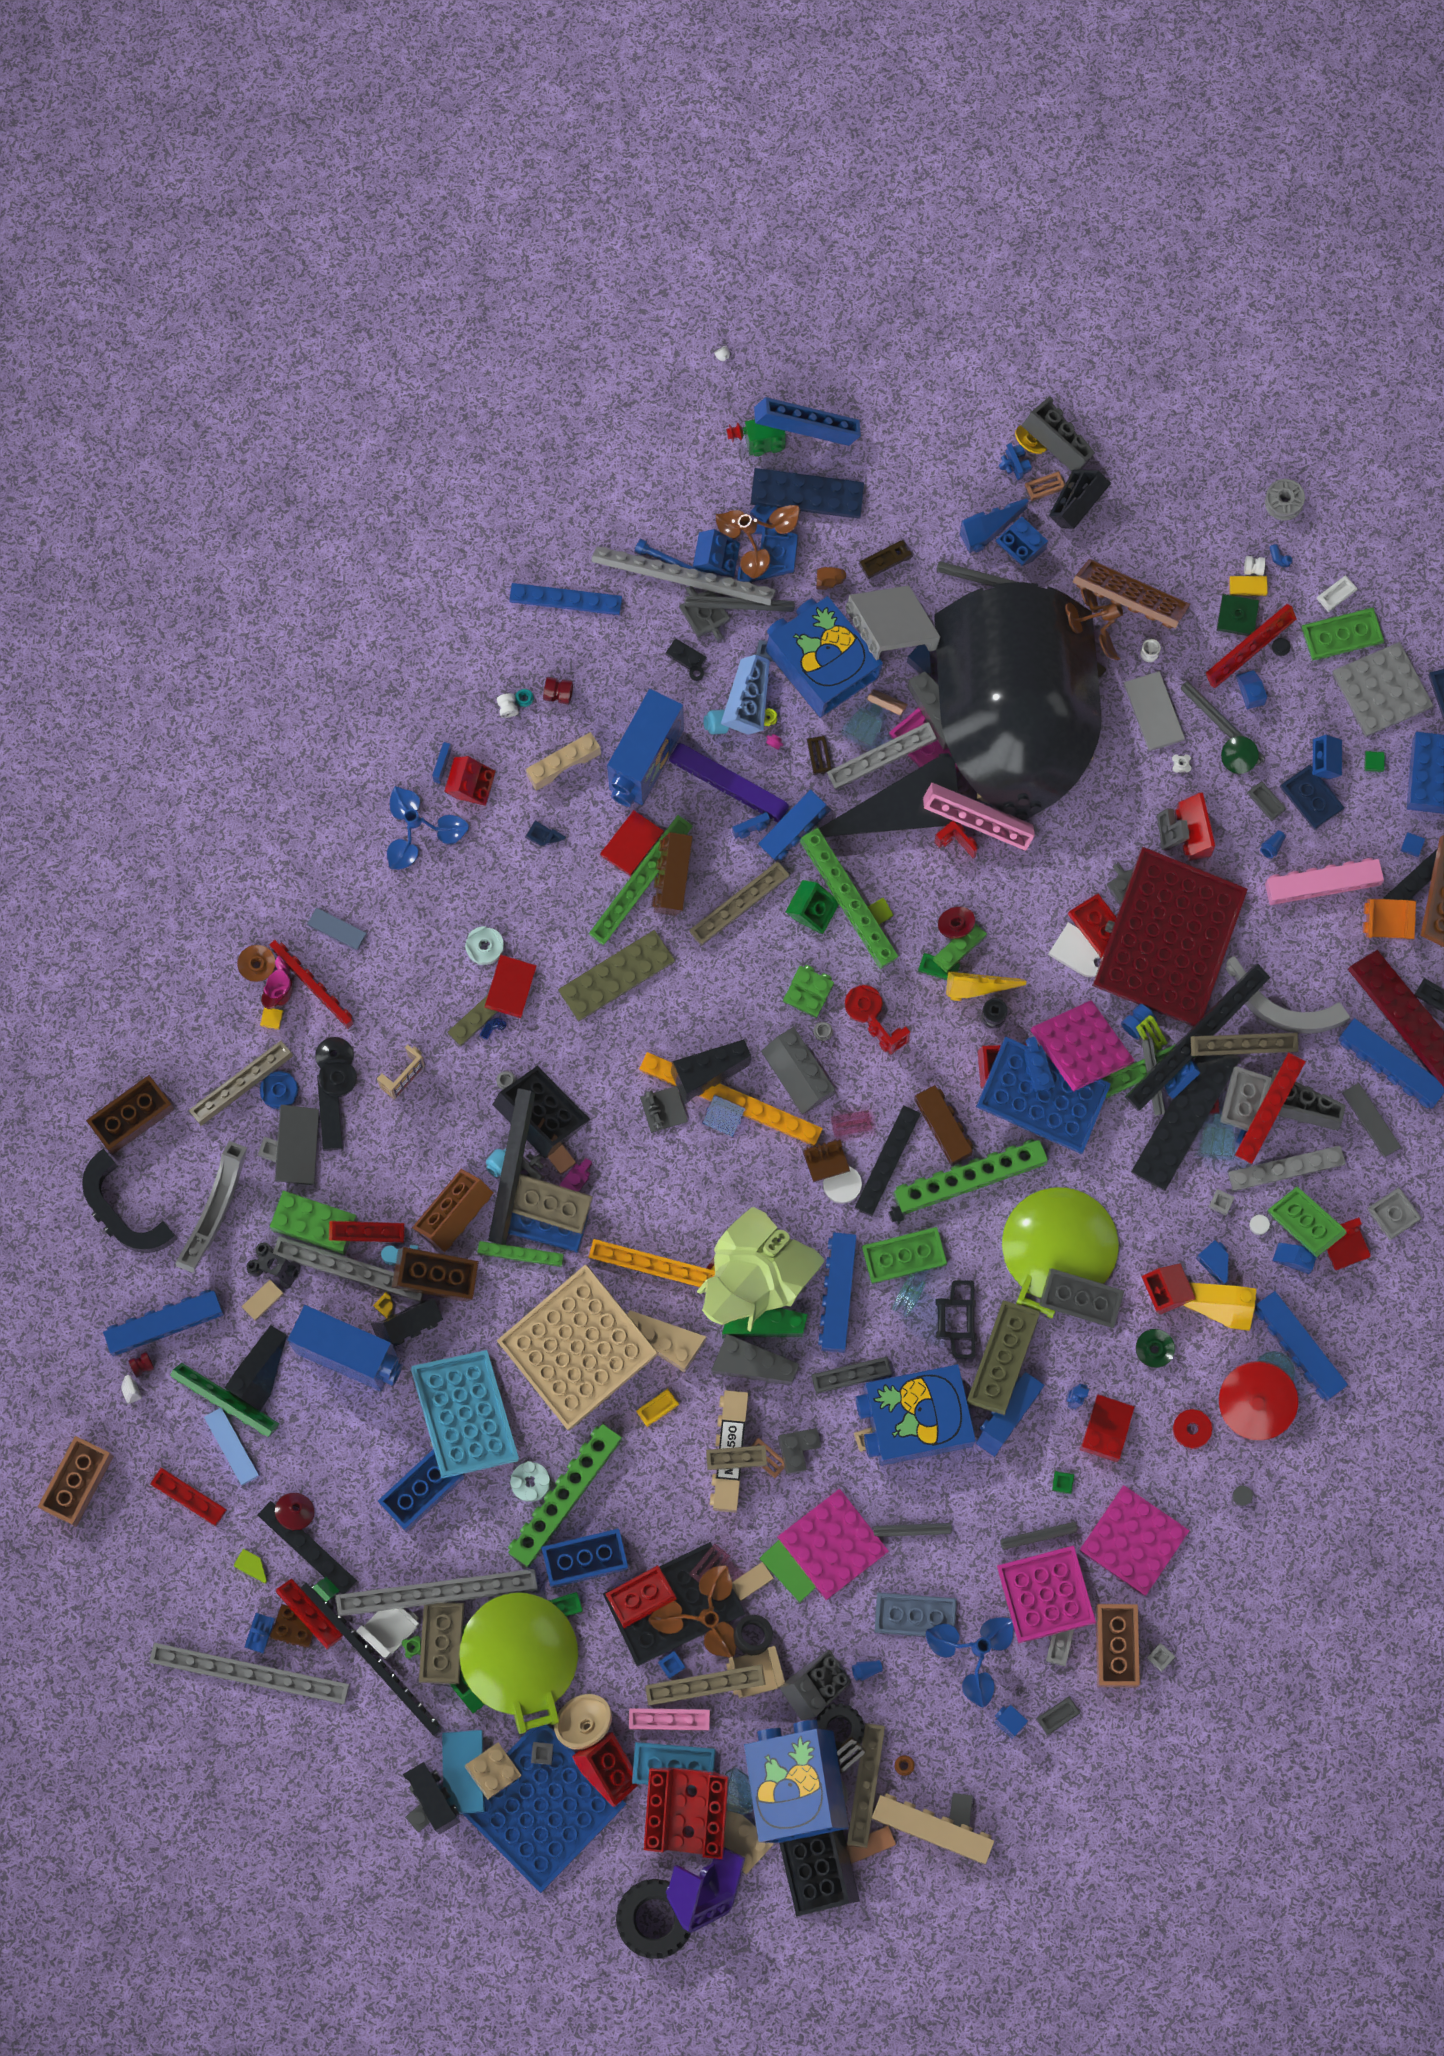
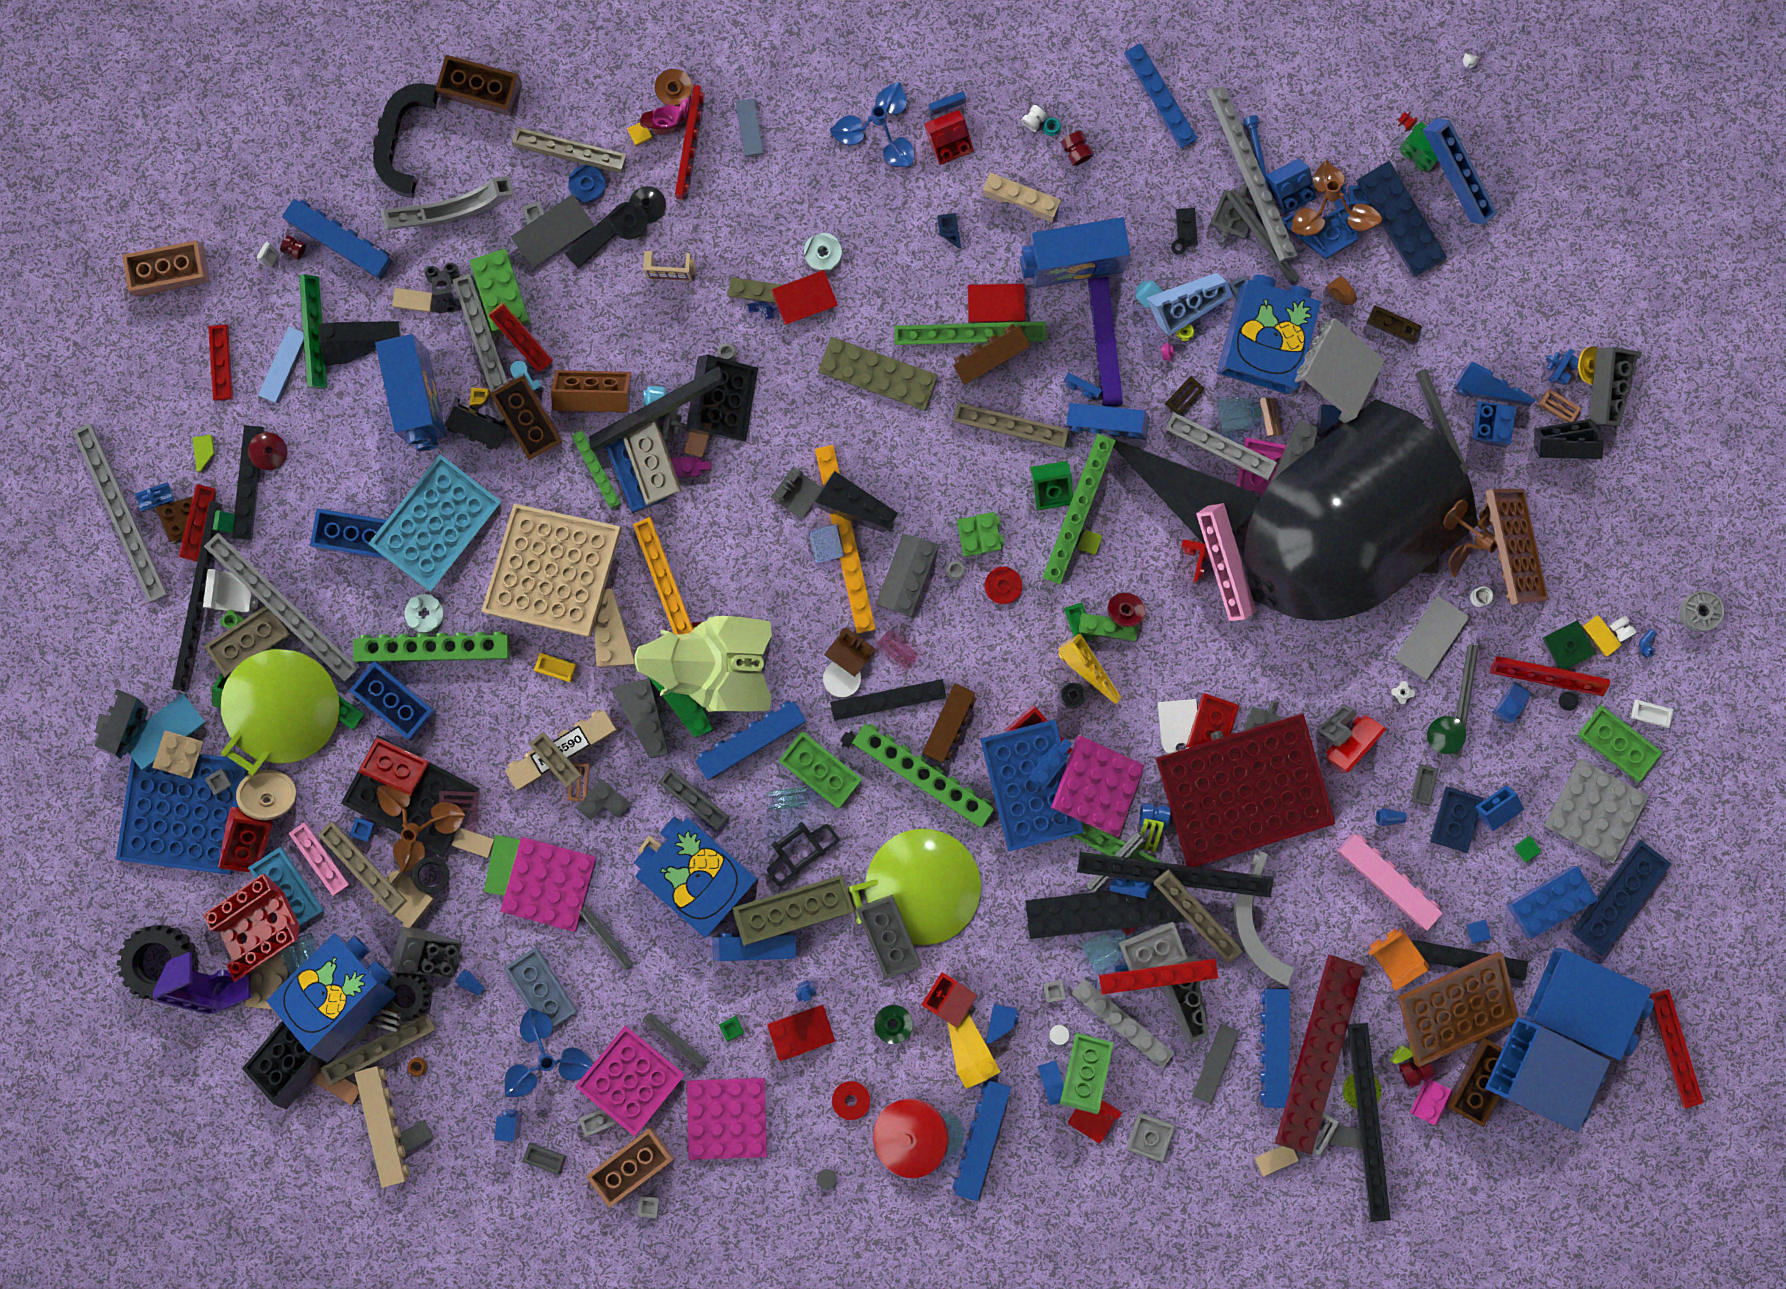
camera: 55 degrees right, 10 degrees up
(891, 1044) = (992, 634): red bracket -> none

